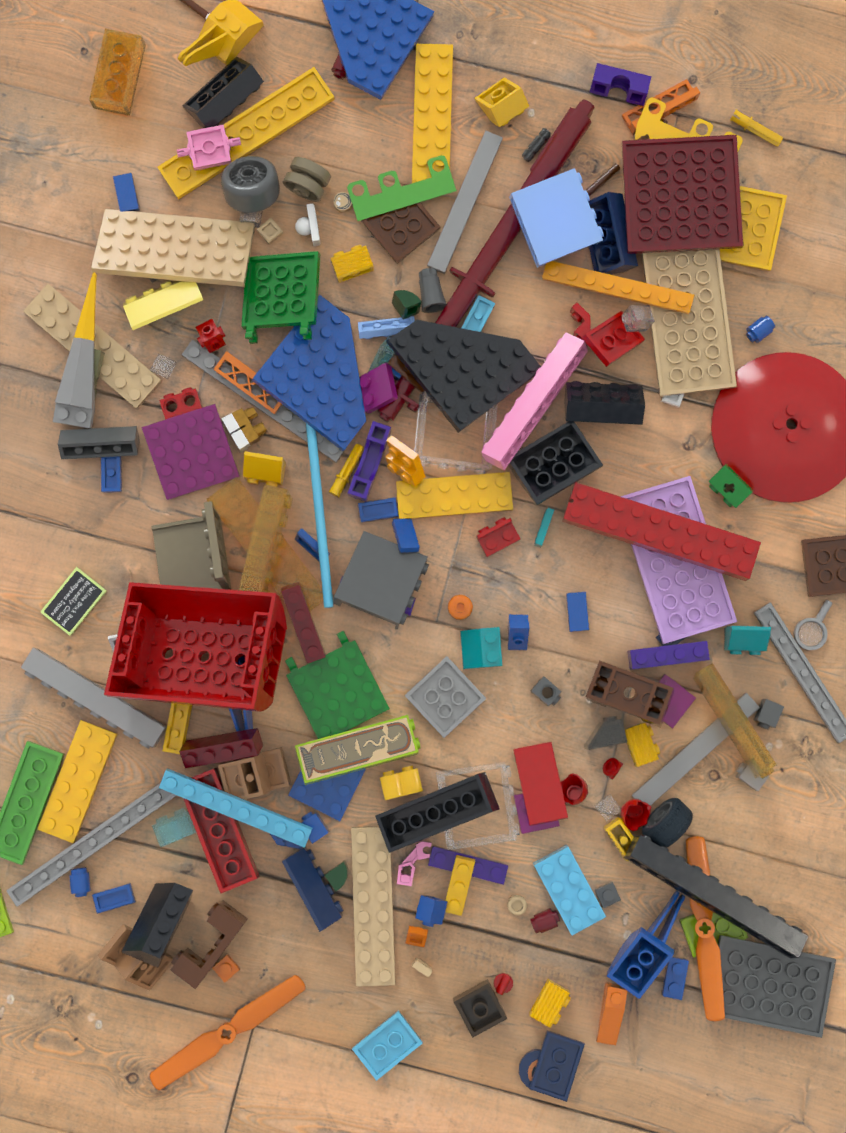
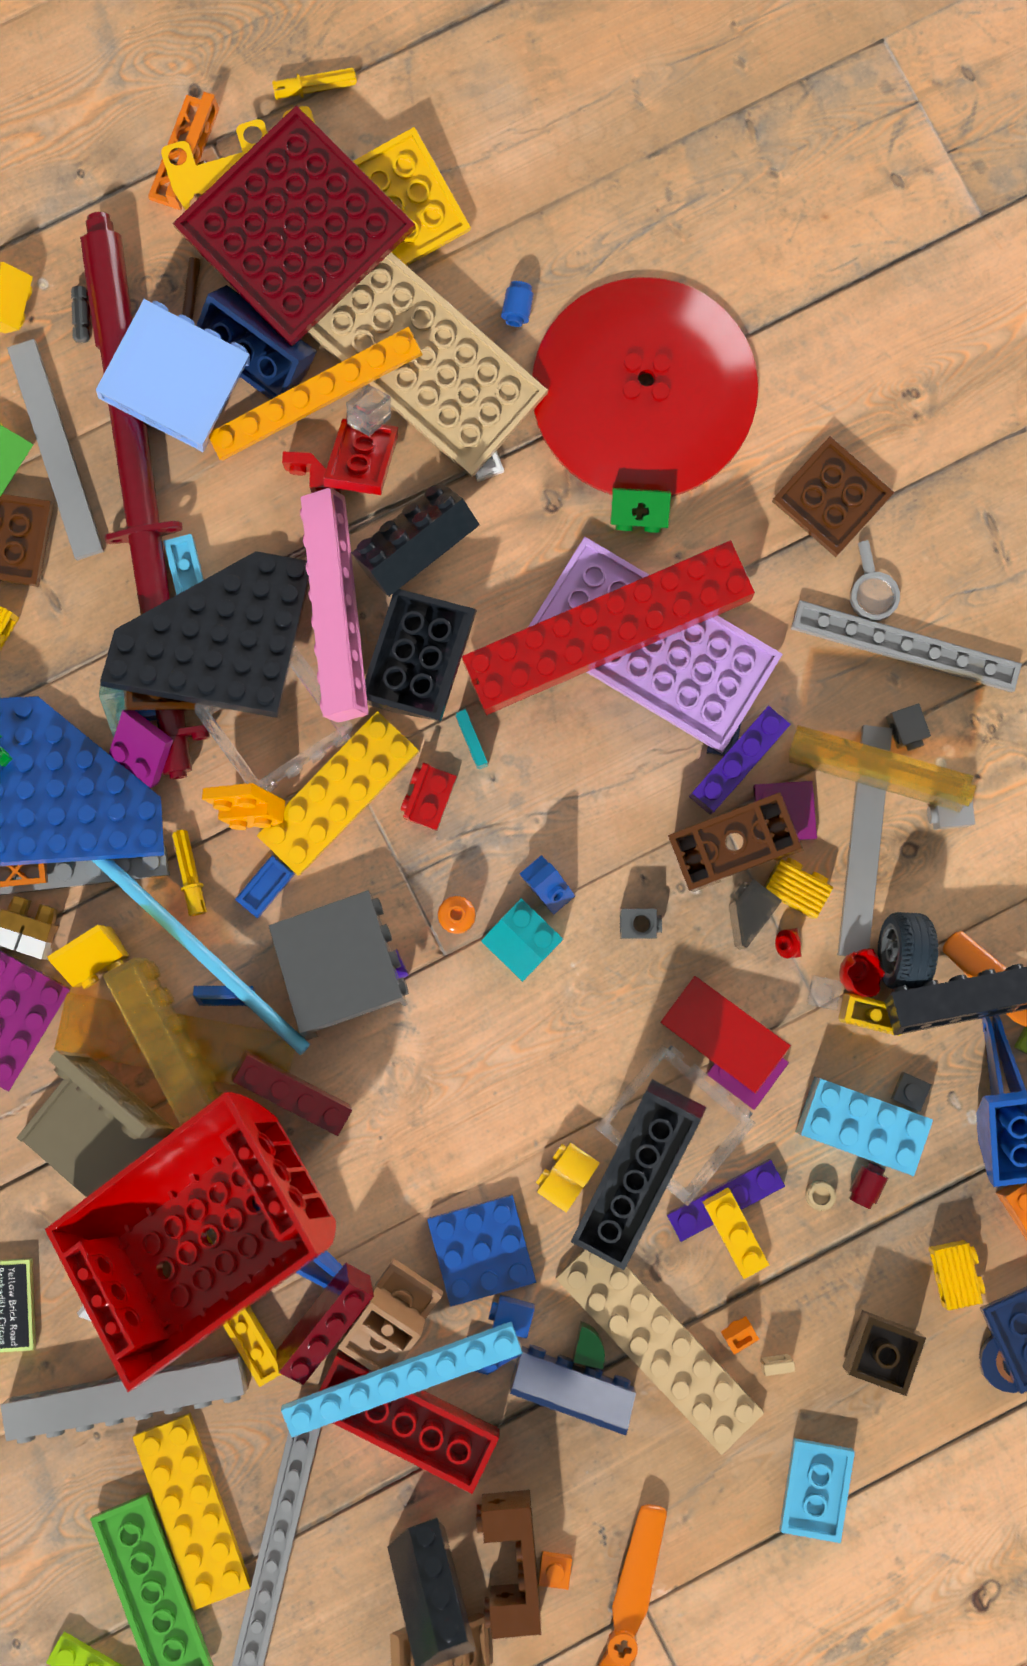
camera: 40 degrees left, 0 degrees up
(79, 882) = (297, 1626): blue brick -> none
(113, 898) = (354, 1608): blue tile -> none
(174, 828) = (351, 1467): clear light blue brick -> none
(337, 690) = (400, 1135): green plate -> none
(357, 749) = (482, 1184): brick -> none
(370, 461) = (212, 854): dark purple arch -> none
(383, 327) = (85, 674): light blue plate -> none
(405, 535) = (321, 888): blue tile -> none
(406, 303) = (88, 622): dark green brick -> none
(417, 853) = (656, 1241): bright pink piece -> none
(431, 291) = (105, 584): dark grey plant -> none
(431, 910) = (730, 1291): blue brick -> none
(445, 697) = (530, 1032): light grey plate -> none
(503, 983) = (884, 1299): red plate -> none
(574, 789) = (769, 1006): red hair -> none
(577, 611) = (594, 801): blue tile -> none
(633, 83) = (129, 150): dark purple arch -> none
(746, 638) = (810, 664): teal slope -> none

